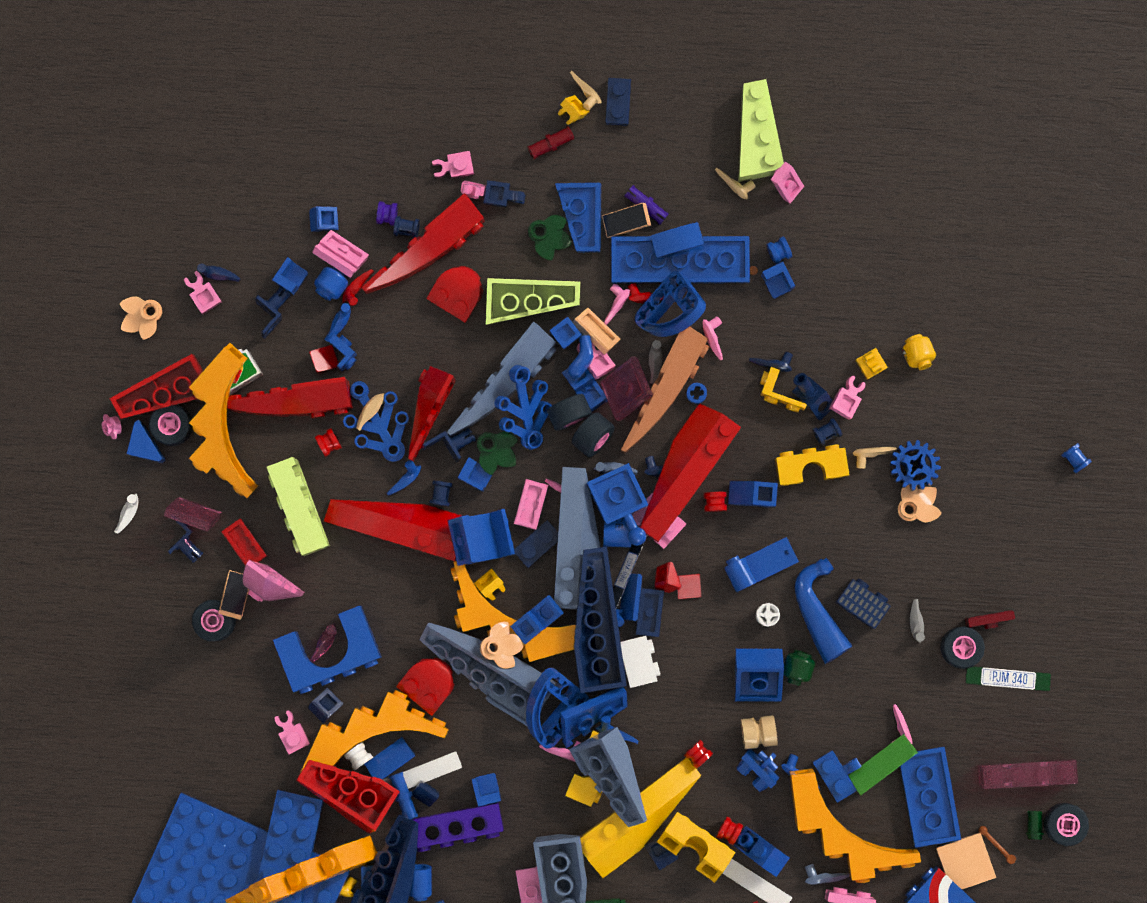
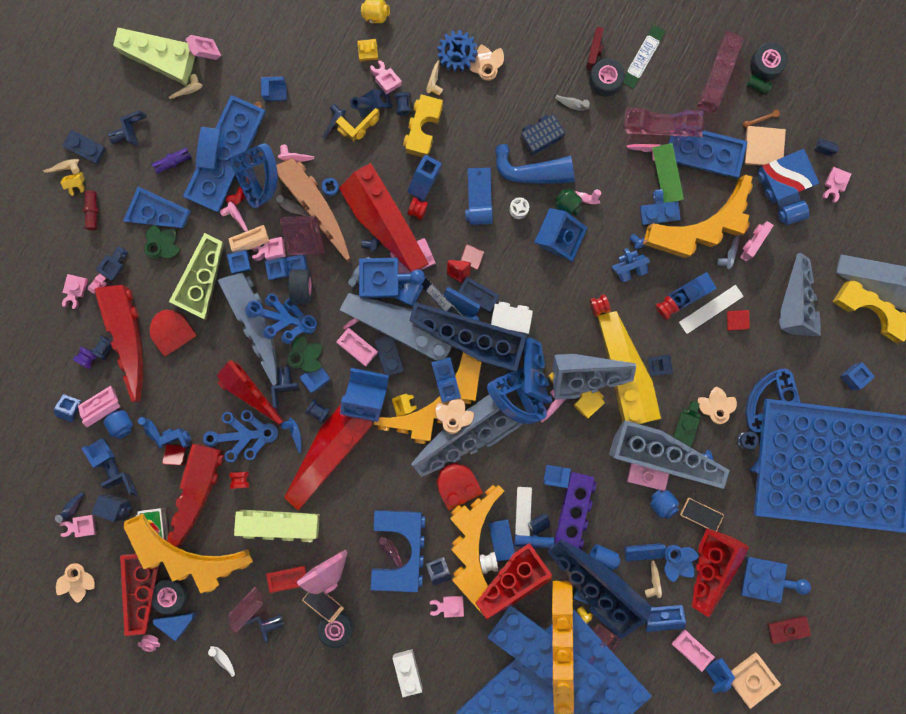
camera: 70 degrees left, 0 degrees up
(201, 720) = (407, 673): none -> white brick
(238, 320) = (112, 507): none -> dark blue brick
(354, 287) = (130, 407): red bar -> none
(370, 410) = (229, 436): tan bar -> none
(583, 359) = (265, 257): blue arm -> none
(593, 434) = (325, 276): black wheel -> none
(605, 725) = (549, 365): blue bar -> none
(626, 220) = (175, 179): black tile -> none
(657, 140) = (127, 131): none -> dark blue bracket
(712, 853) = (680, 327): yellow arch -> none
(759, 732) = (604, 252): tan wheel -> none
(779, 250) = (252, 78): blue wheel -> none
(813, 687) = (590, 199): none -> bright pink bar
(934, 731) = (681, 124): none -> clear pink arch

